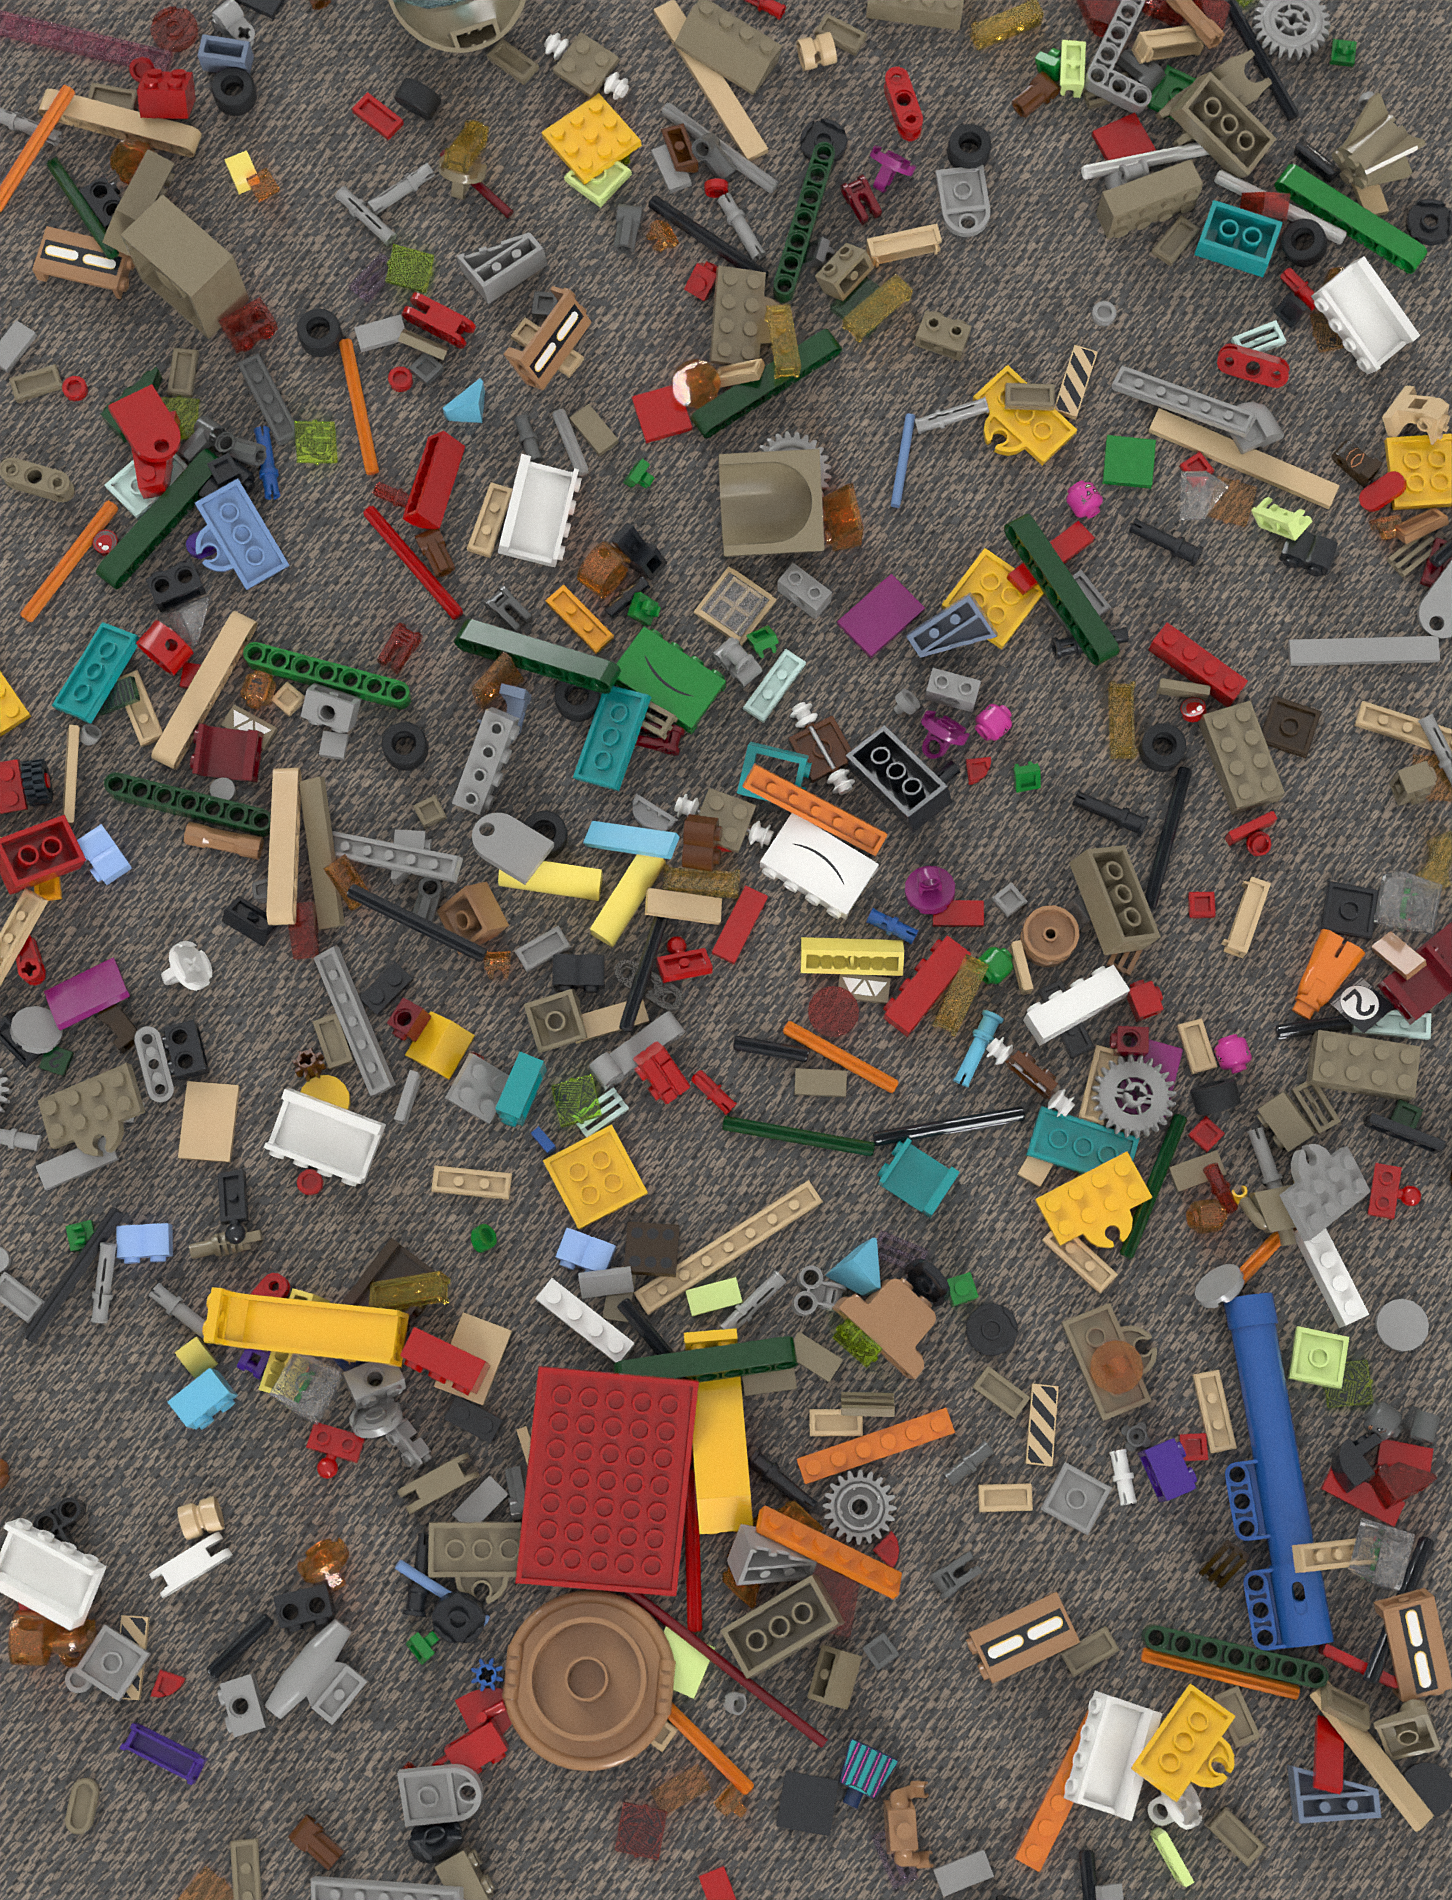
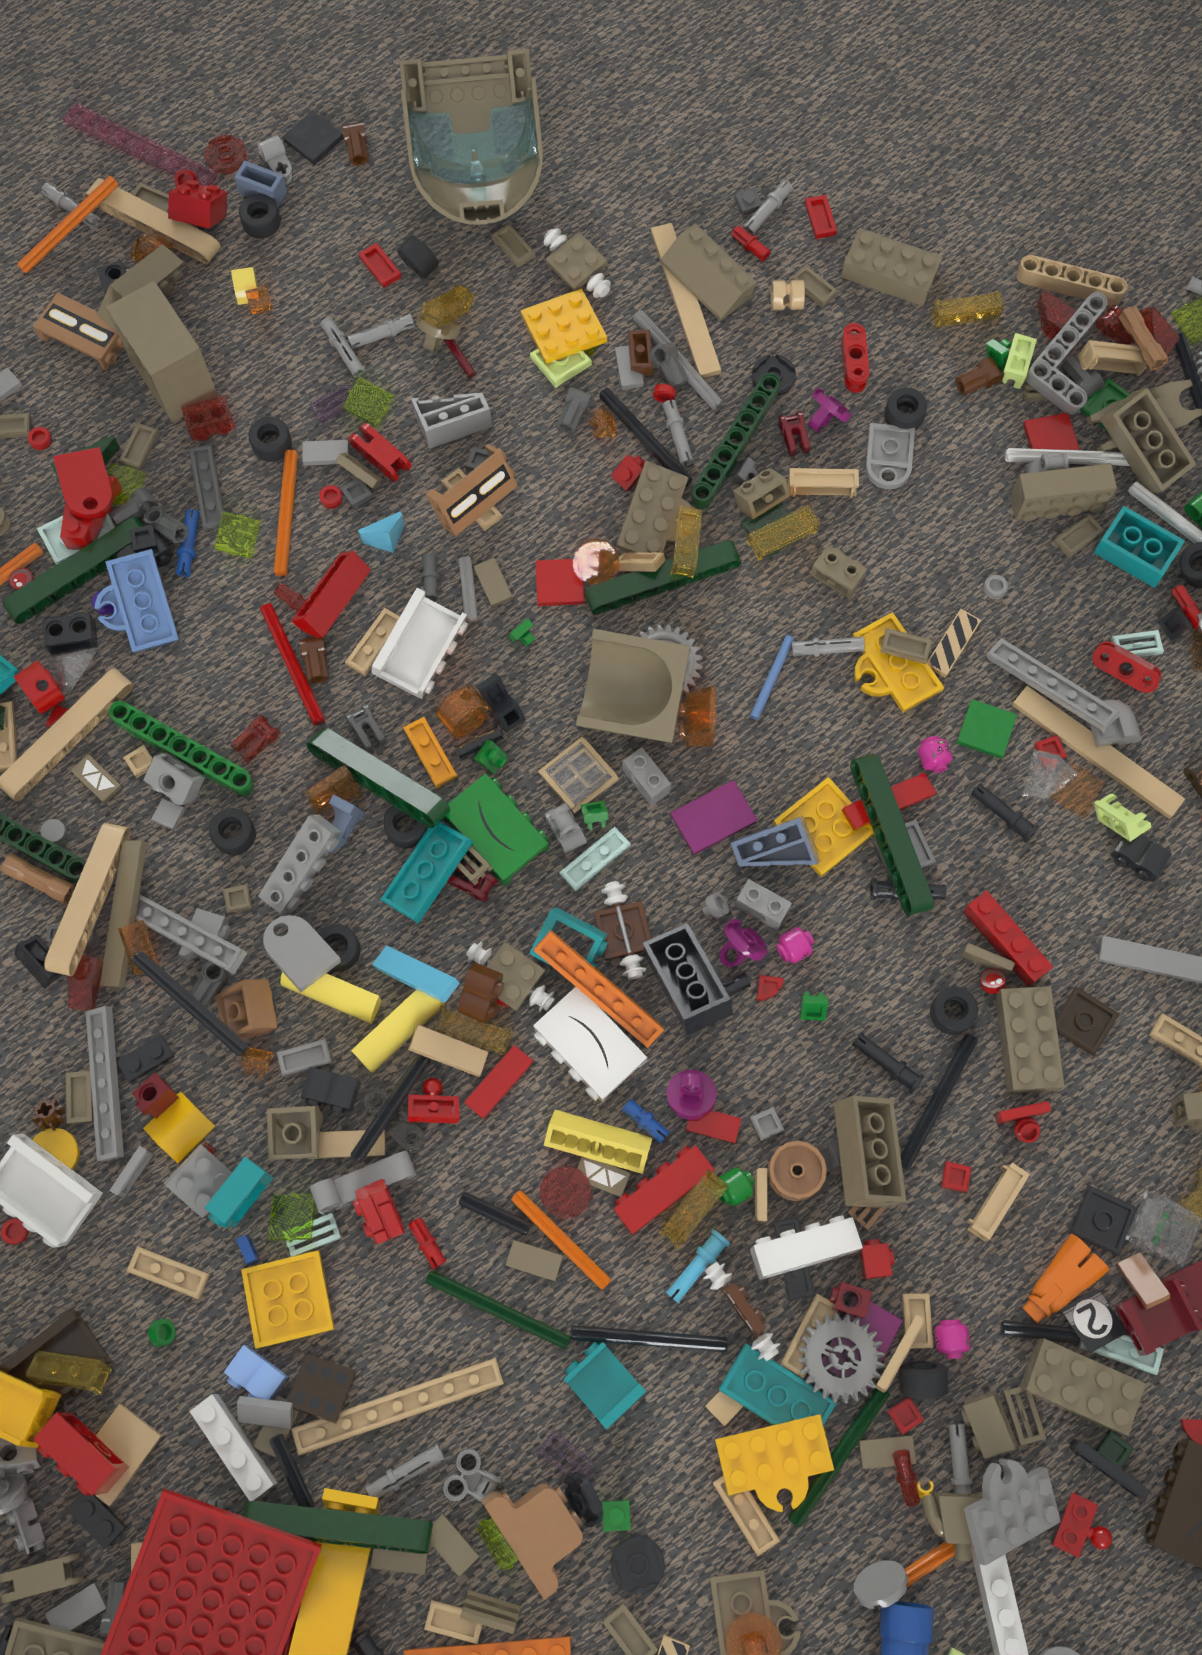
camera: 15 degrees right, 5 degrees down
(81, 206) = (93, 280): dark green axle -> none
(227, 753) = (66, 797): dark red panel -> none
(258, 689) = (113, 745): clear orange head -> none
(651, 816) = (443, 955): light grey tile -> none
(714, 1296) = (369, 1454): yellowish green tile -> none
(859, 1269) = (520, 1465): medium azure slope -> none
(1121, 720) = (920, 974): clear yellow container -> none
(1188, 1078) = (900, 1354): none -> tan tile
(1206, 1216) = (885, 1503): clear orange head -> none
(1267, 204) = (1174, 521): clear red slope -> none

